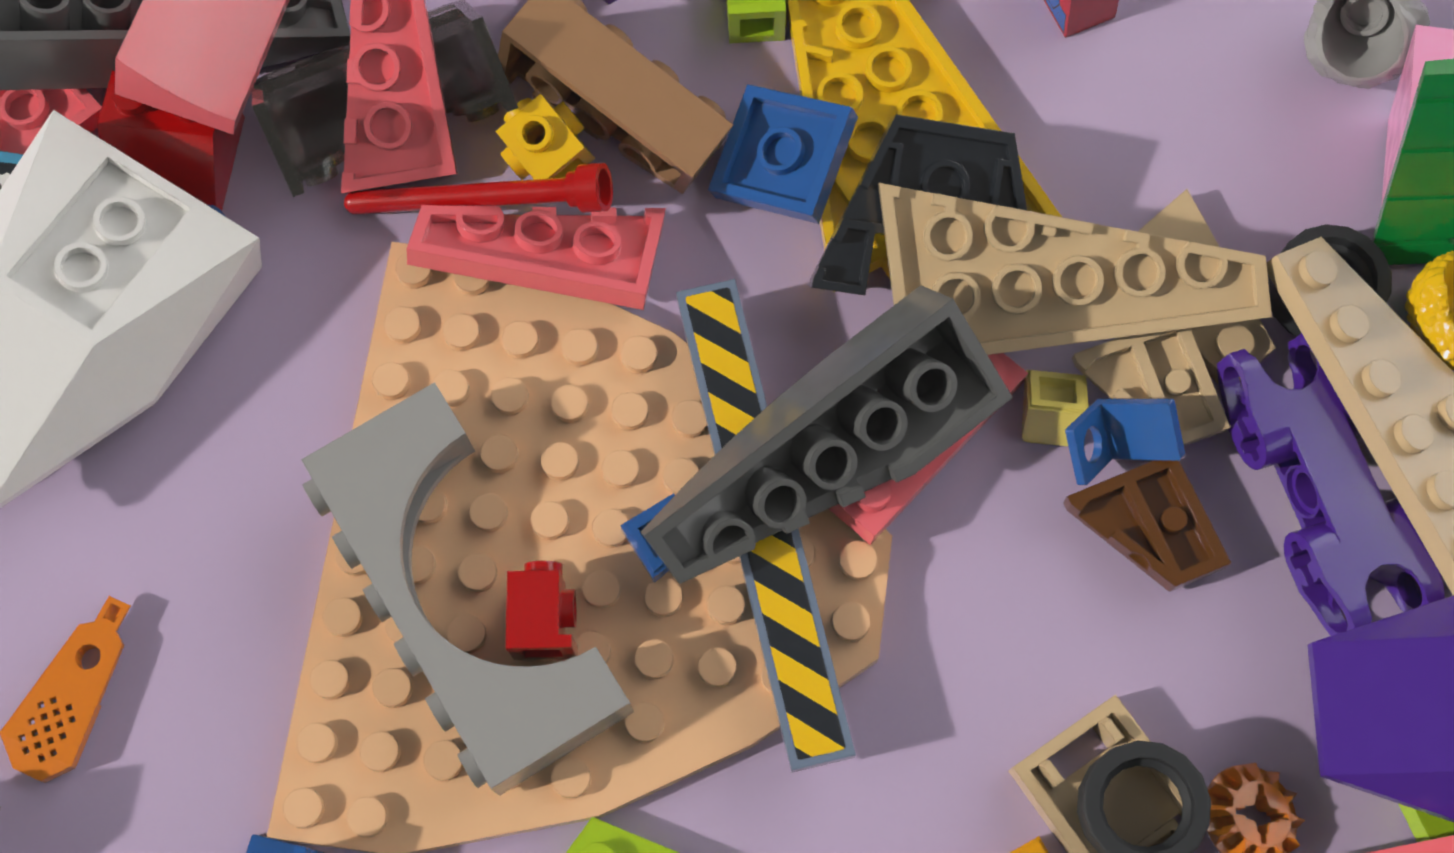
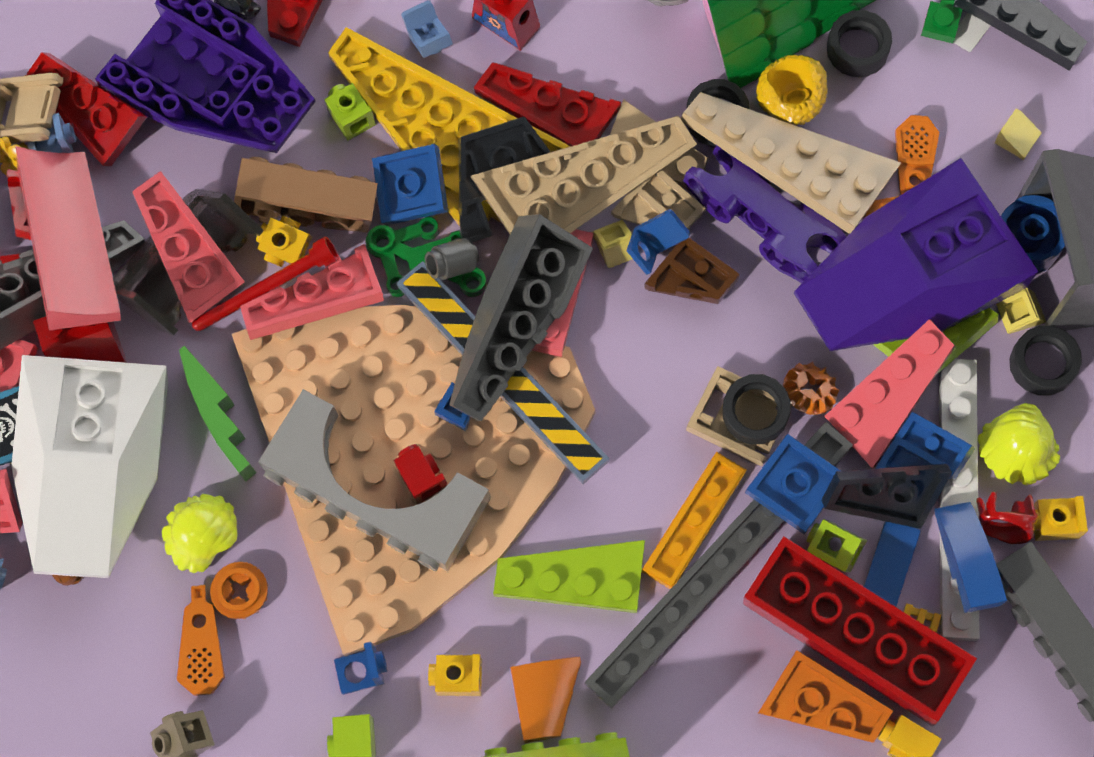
camera: 25 degrees left, 0 degrees up
(153, 626) = (222, 590): none -> orange gear
(170, 517) = (199, 531): none -> neon yellow hair
(297, 334) = (212, 406): none -> bright green slope
(745, 270) = (415, 255): none -> green plant
(780, 299) = (451, 259): none -> dark grey brick
(1061, 141) = (548, 106): none -> red wing

